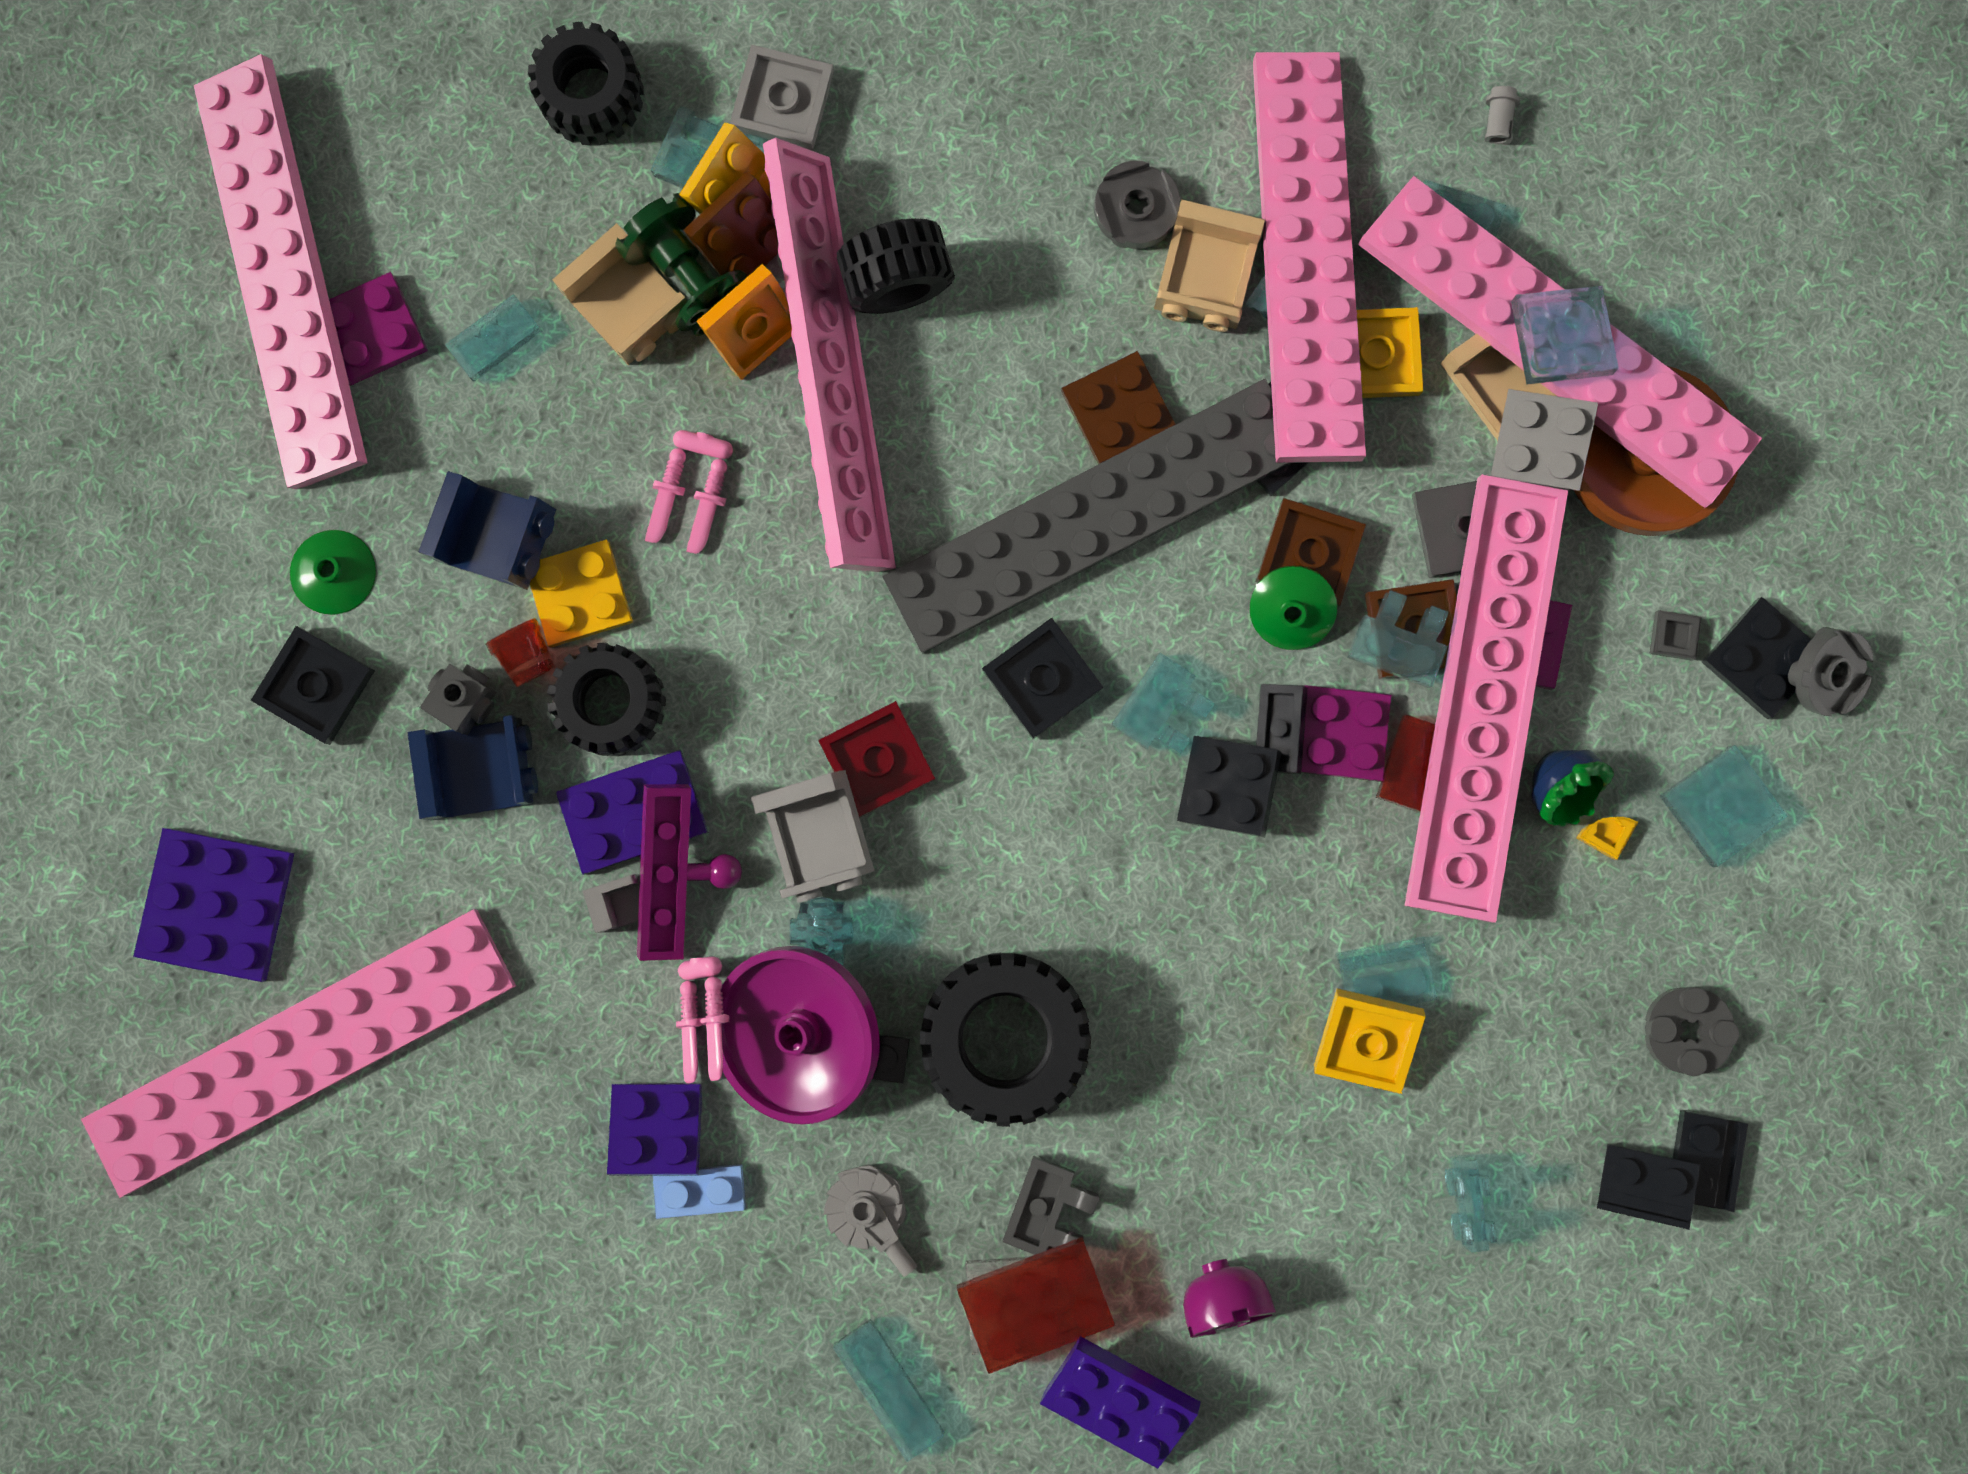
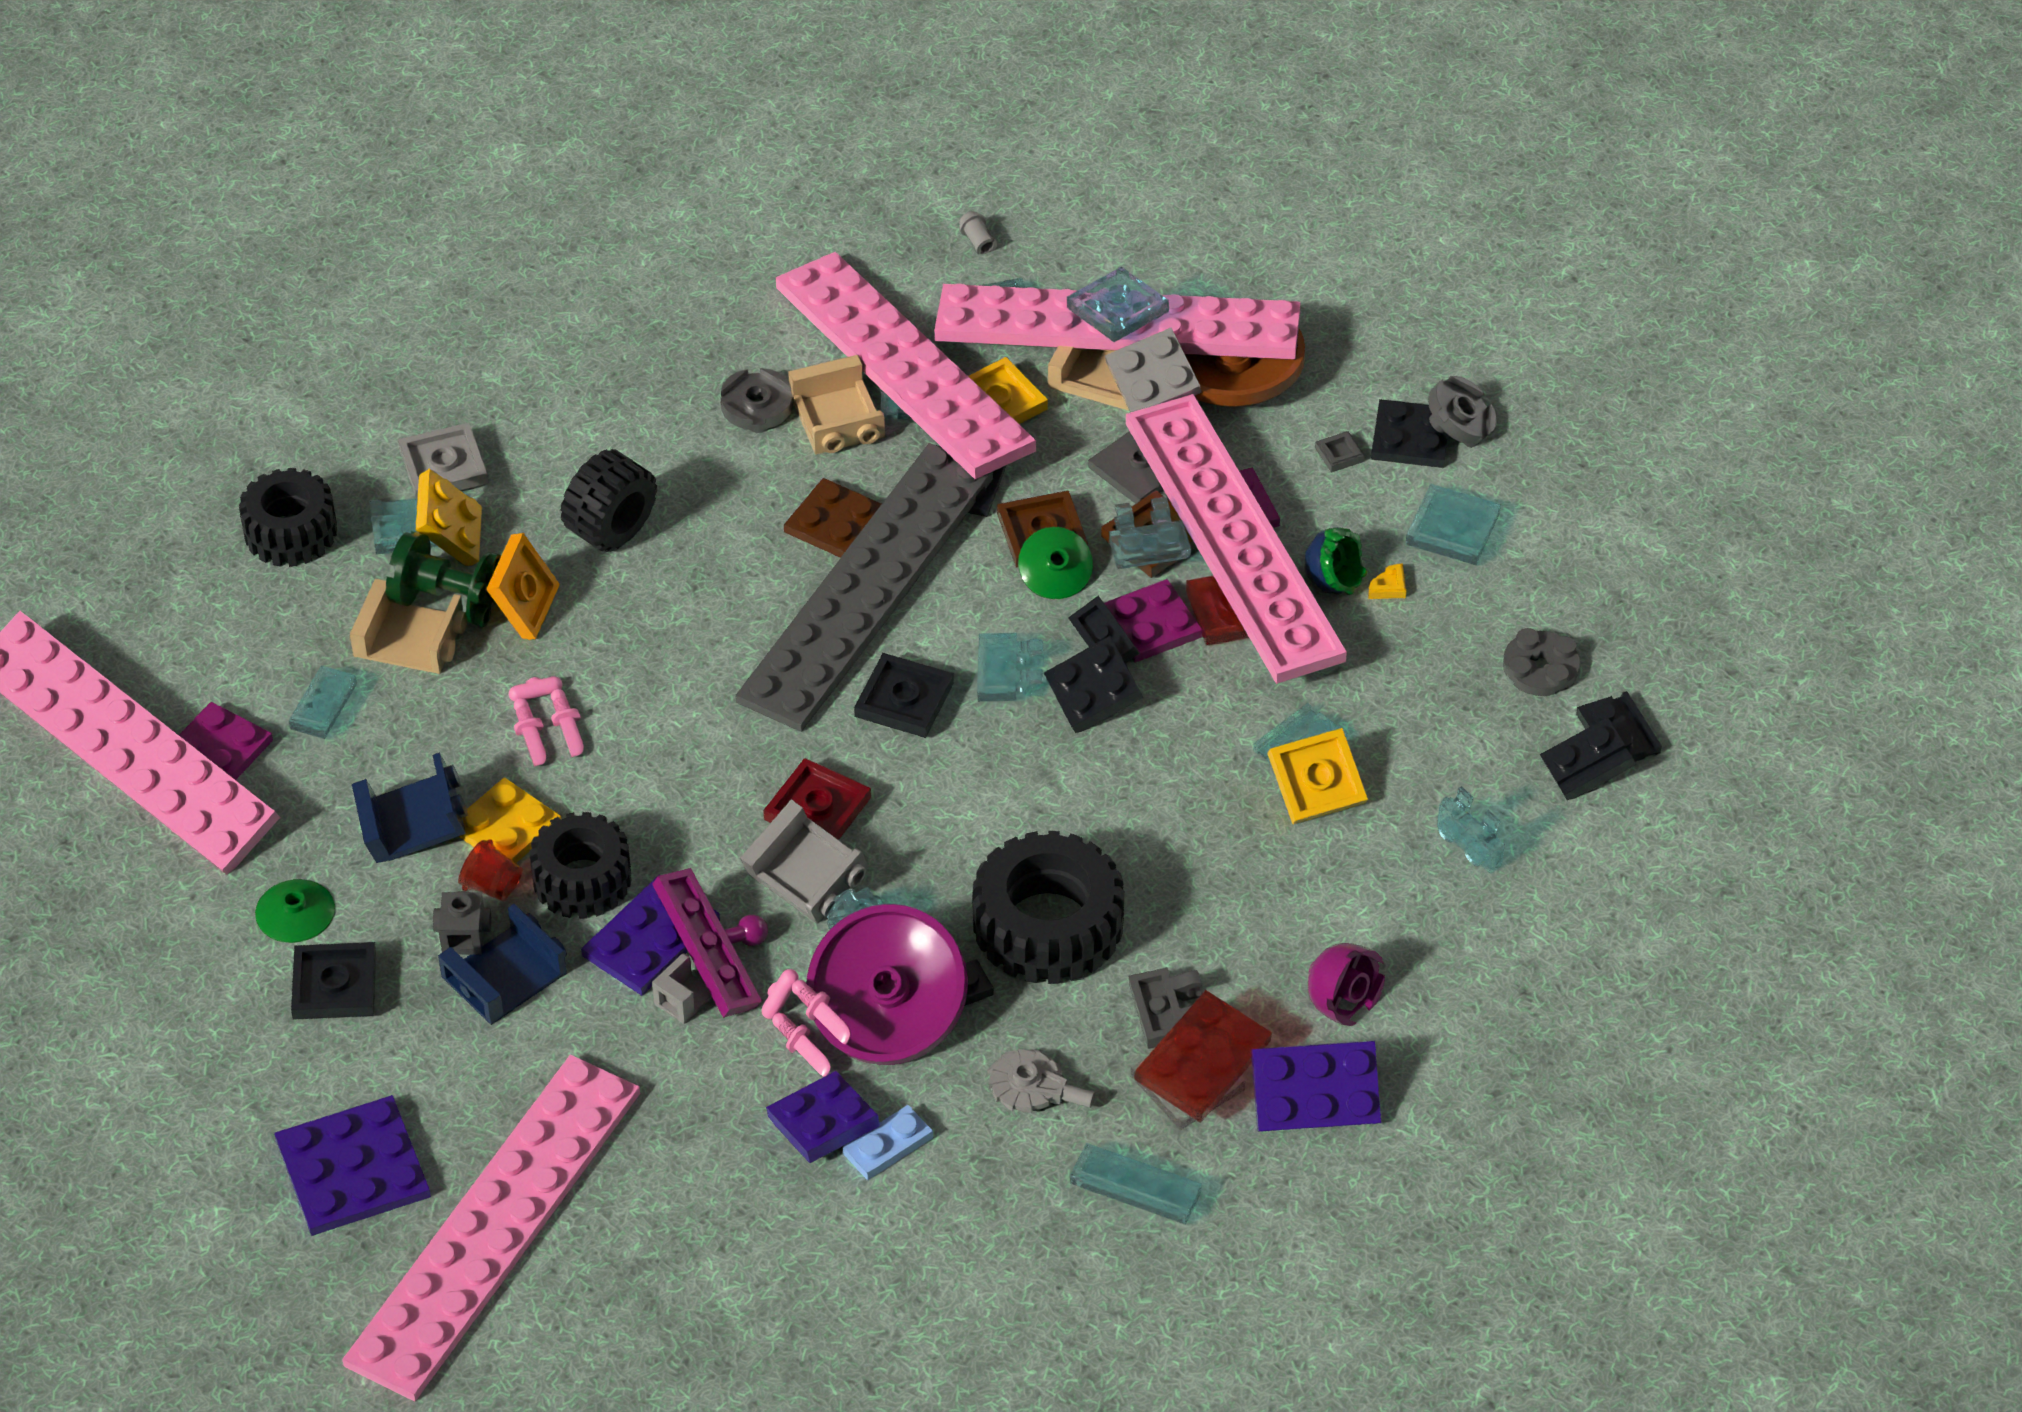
camera: 35 degrees left, 35 degrees down
(736, 229) = (470, 532): reddish brown plate -> none
(828, 359) = (598, 584): bright pink plate -> none

